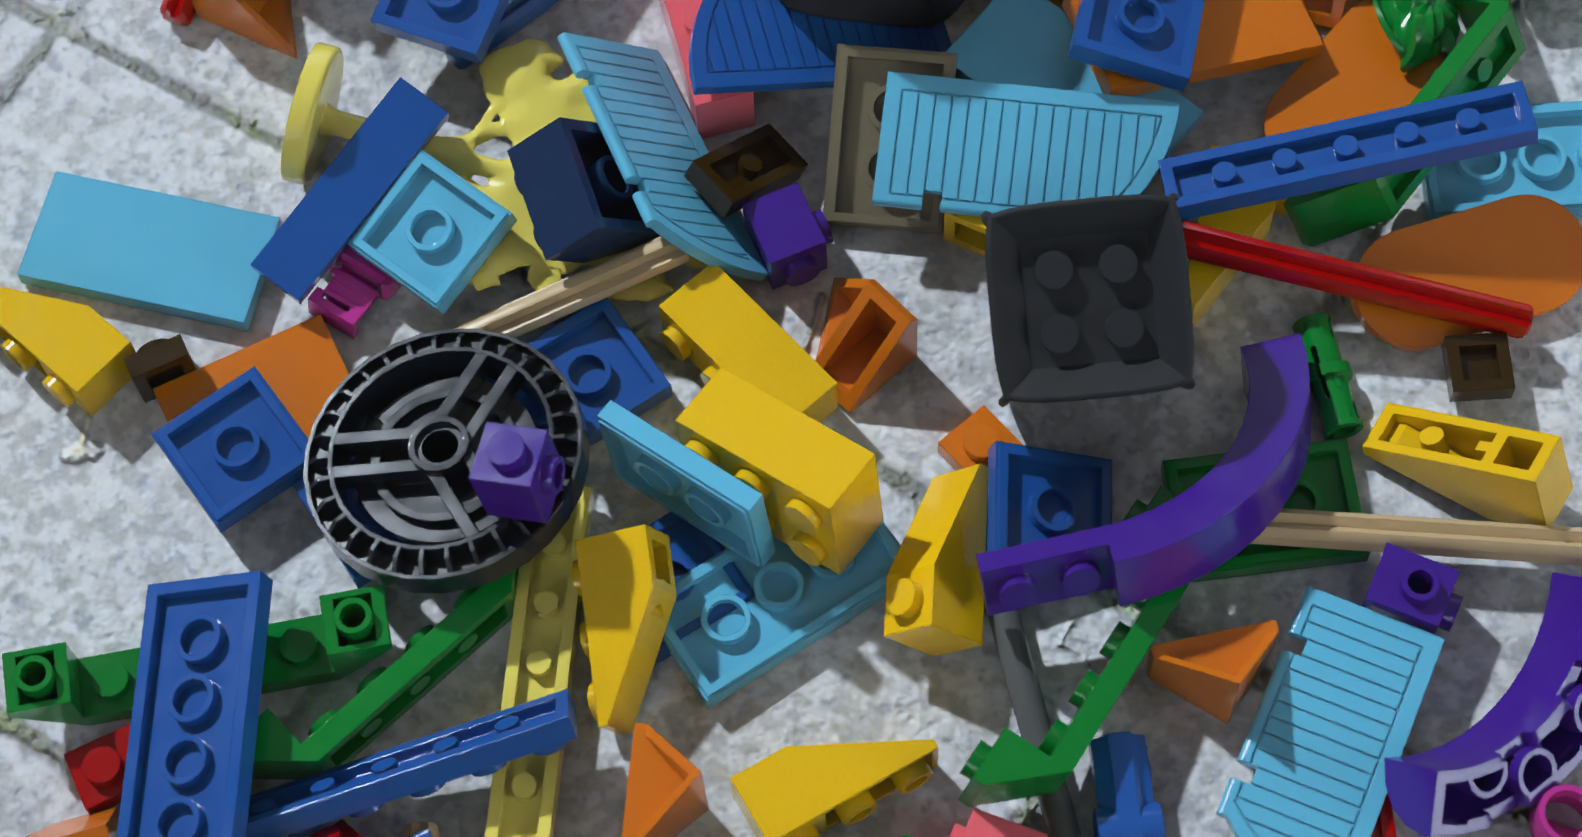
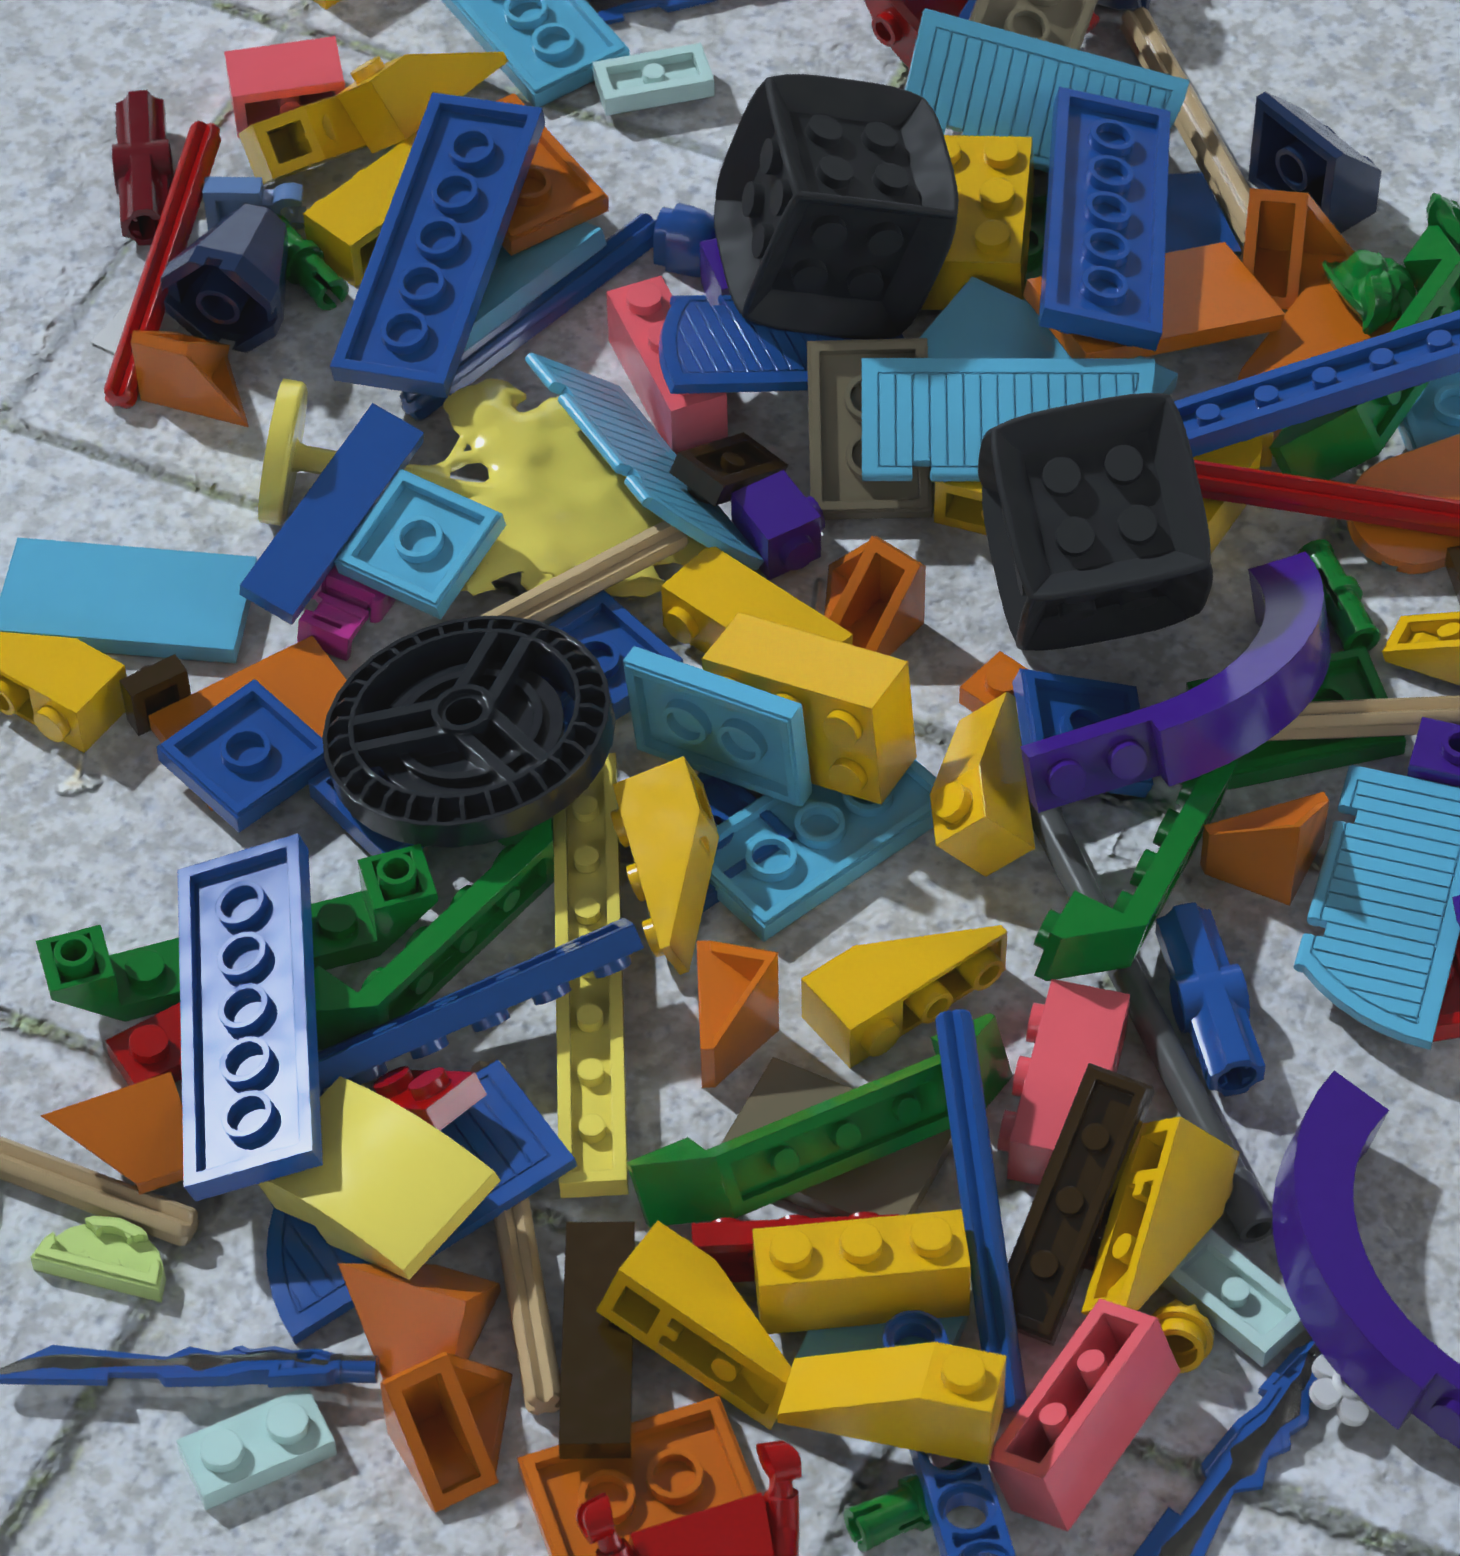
camera: 10 degrees left, 15 degrees down
(517, 472) = (554, 707): dark purple brick -> none
(576, 193) = (567, 491): dark blue slope -> none

